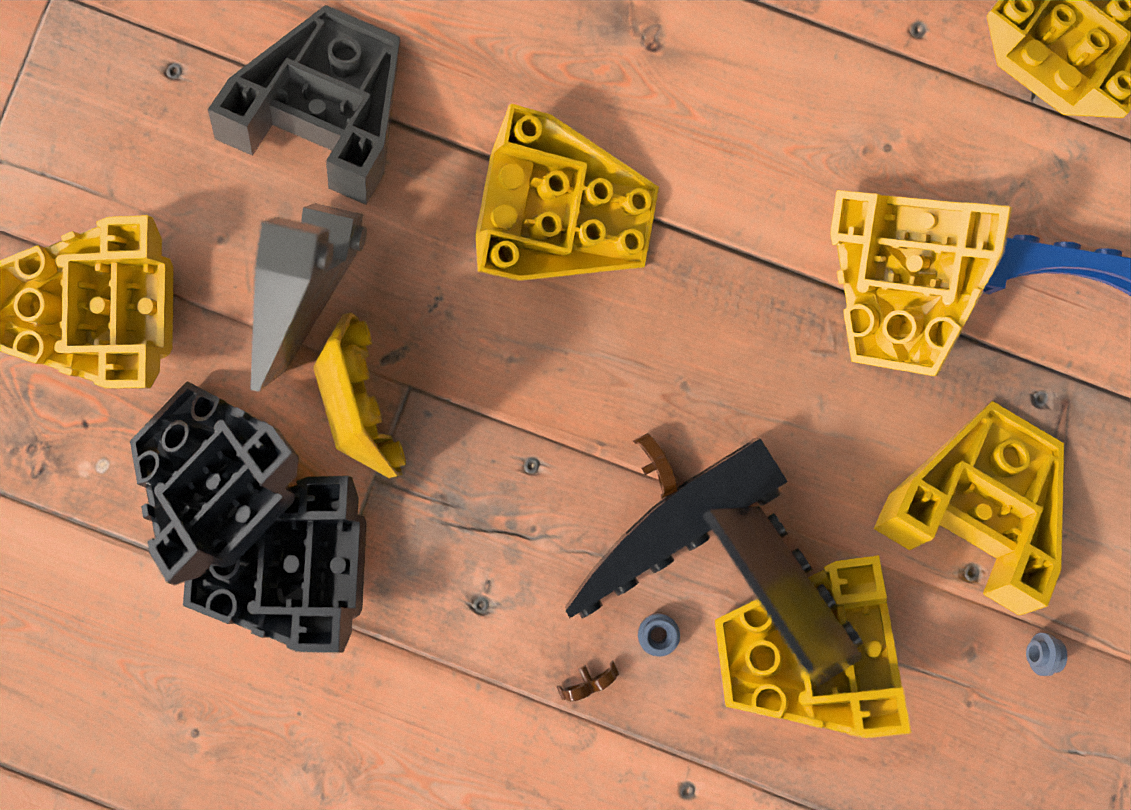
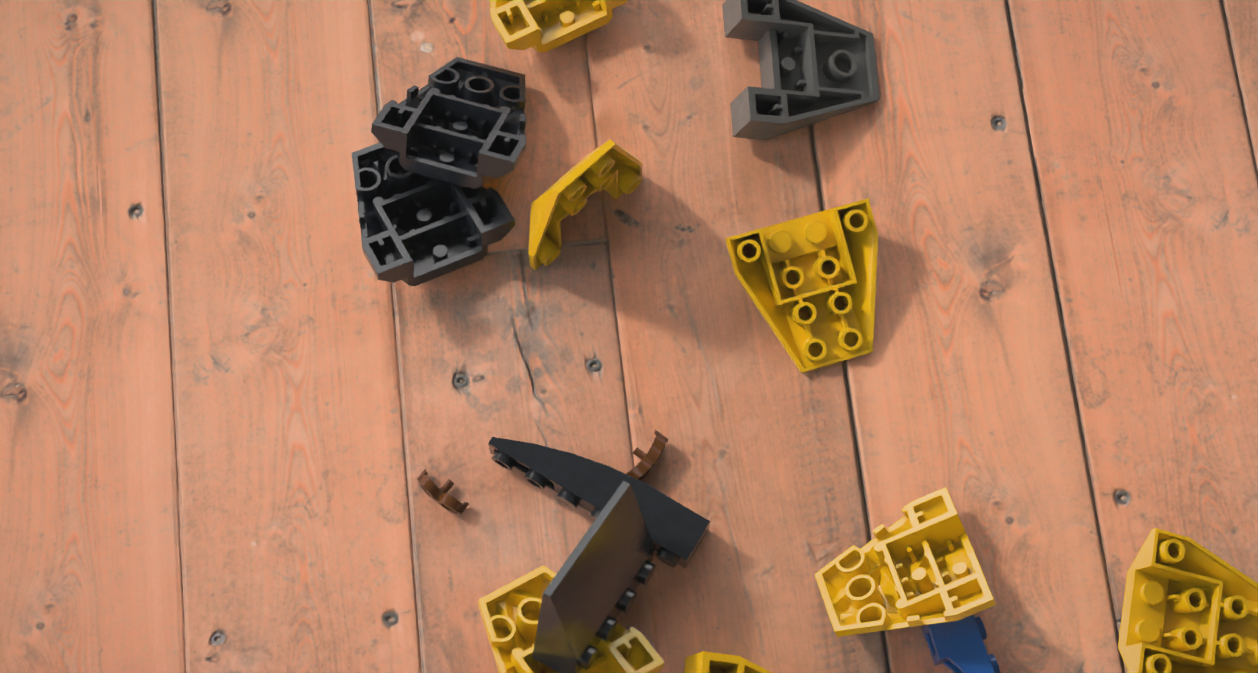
camera: 65 degrees right, 15 degrees down
(294, 279) = (642, 110): dark grey wedge -> none
(662, 647) = (508, 517): sand blue plate -> none

